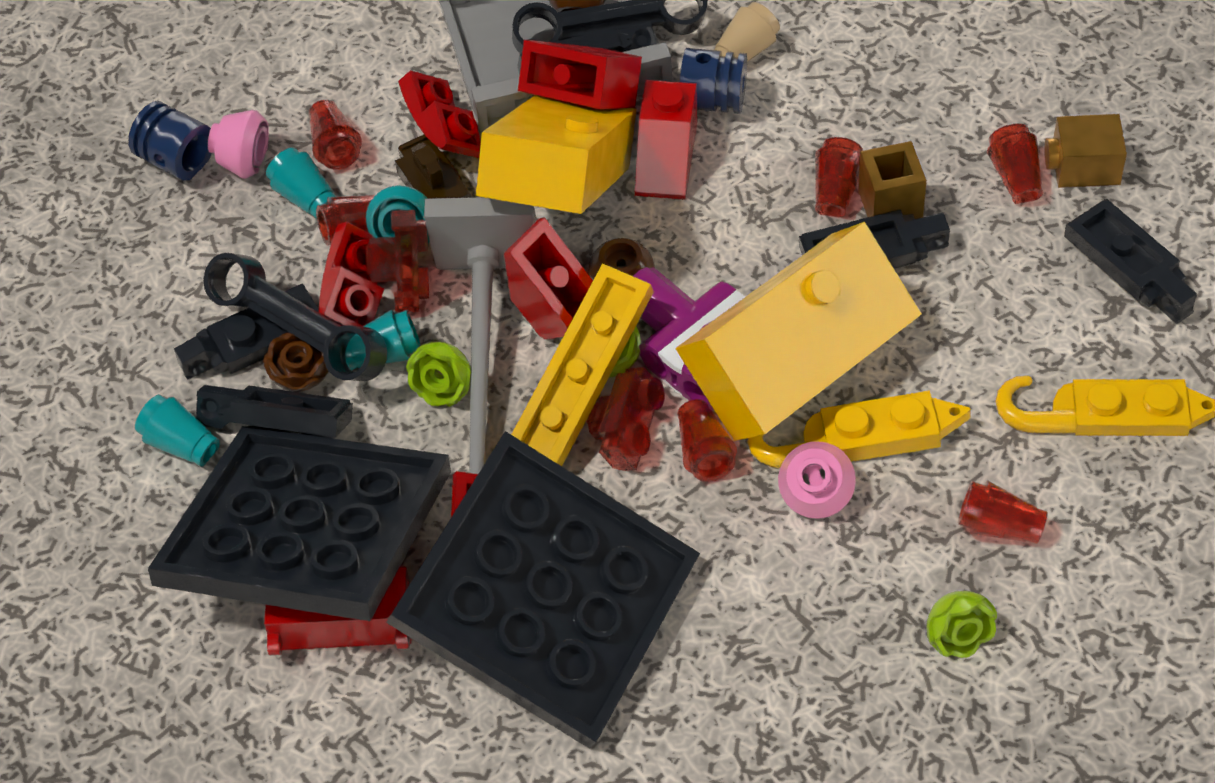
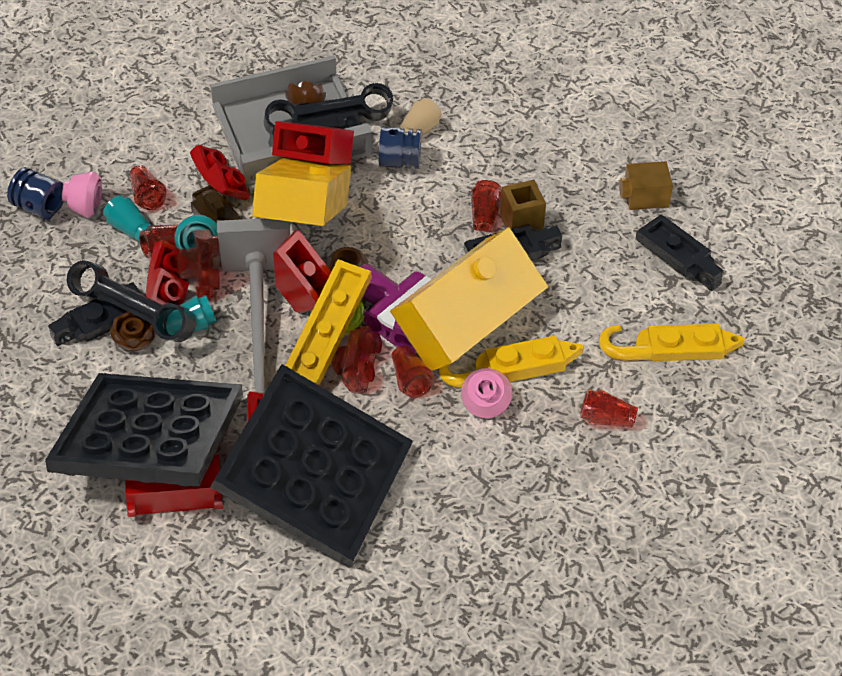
camera: 10 degrees left, 5 degrees down
(175, 430) = (52, 377): teal cone -> none
(273, 410) = (117, 361): black hinge -> none
(429, 383) = (221, 339): lime plate -> none
(666, 139) = (371, 184): slope -> none
(961, 623) = (587, 475): lime plate -> none
(1016, 160) = (601, 192): clear red cone -> none

